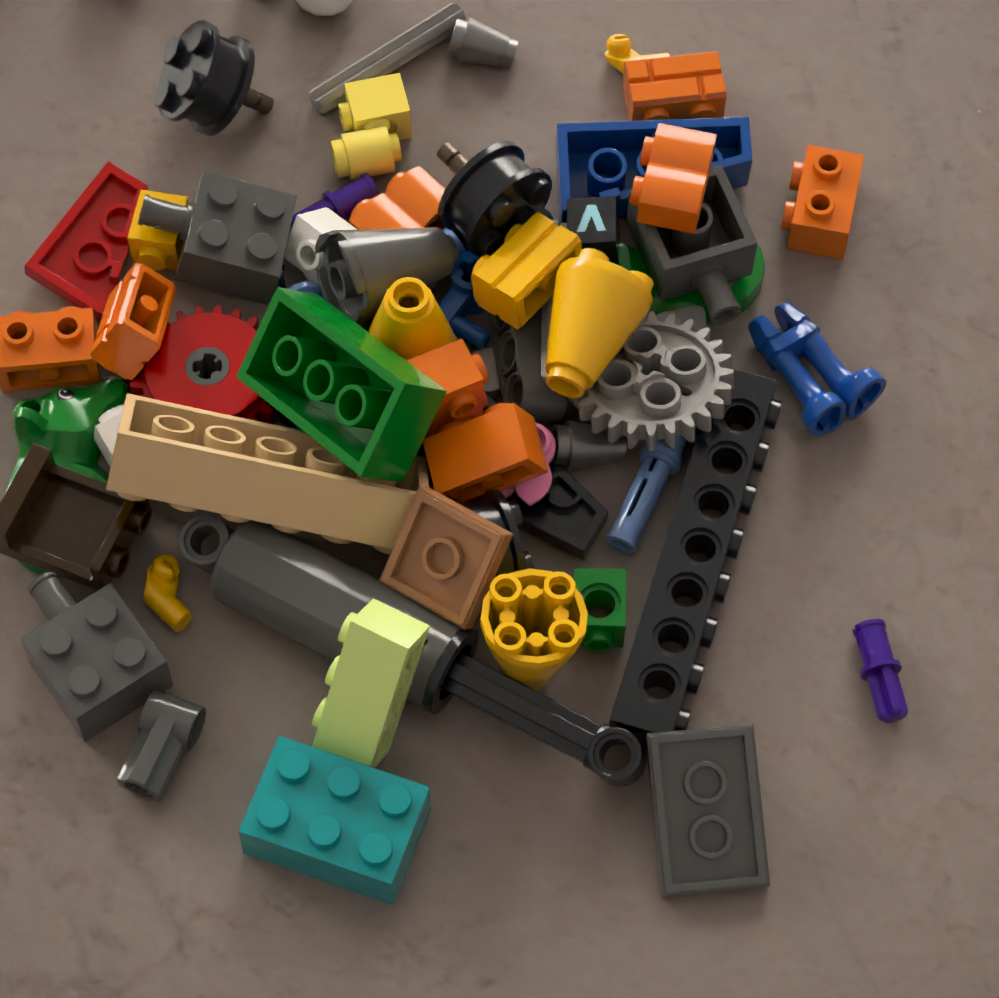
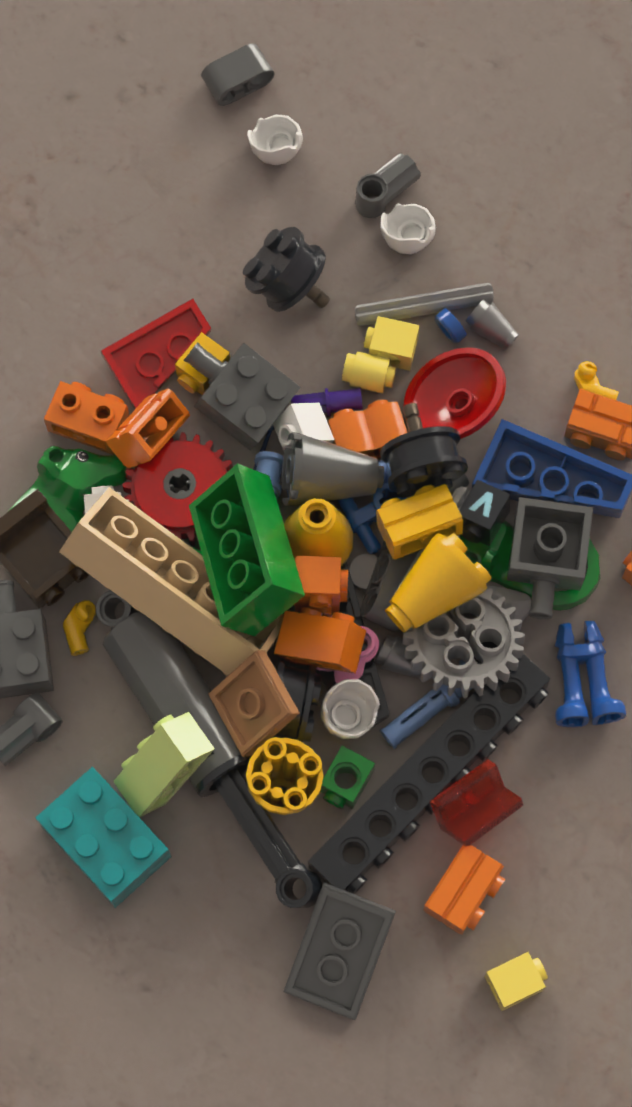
camera: 30 degrees right, 10 degrees up
(433, 65) = (450, 326): none -> blue tile
(484, 110) = (458, 390): none -> red dish
(561, 519) = (349, 709): none -> white hair
(675, 177) = (550, 505): orange brick -> none
(770, 563) = (475, 804): none -> clear red panel
(813, 667) = (464, 888): none -> orange brick
(880, 670) = (509, 913): dark purple axle -> none
(935, 741) = (516, 980): none -> light yellow brick

